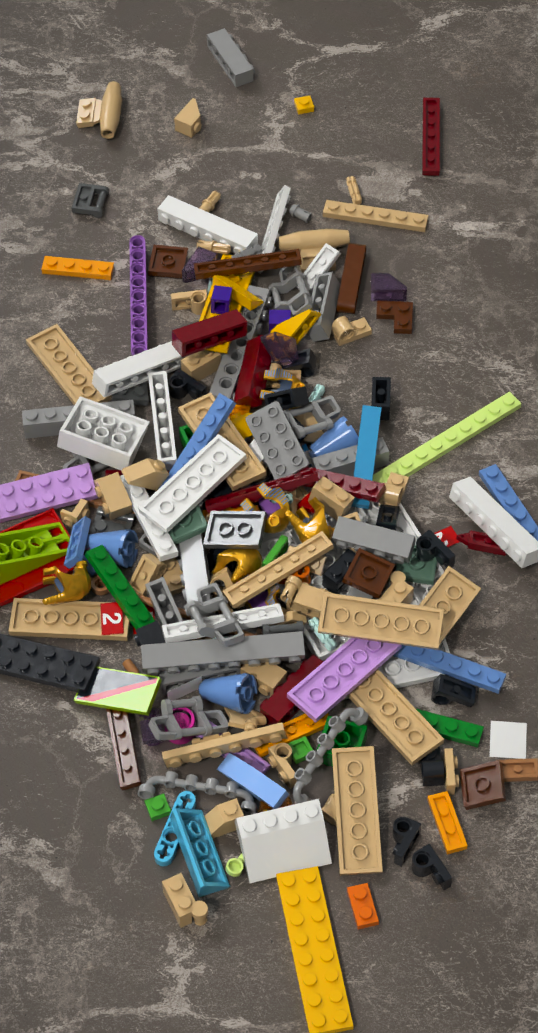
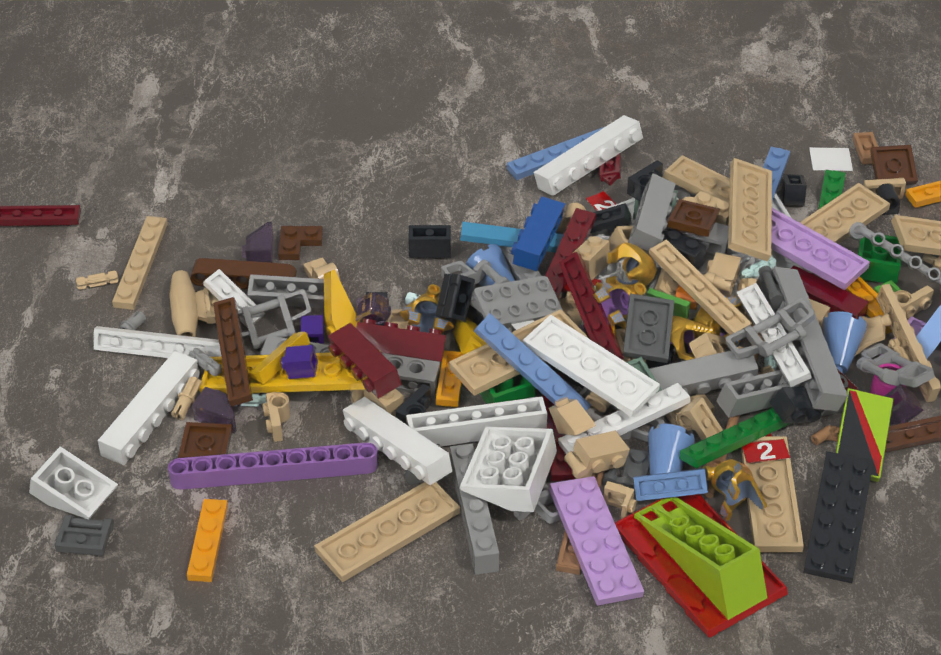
camera: 95 degrees left, 10 degrees down
(131, 185) = (71, 485): none -> white slope
(209, 203) = (103, 408): tan axle -> none
(359, 458) = (538, 233): none -> blue brick
(451, 438) = (465, 191): yellowish green plate -> none

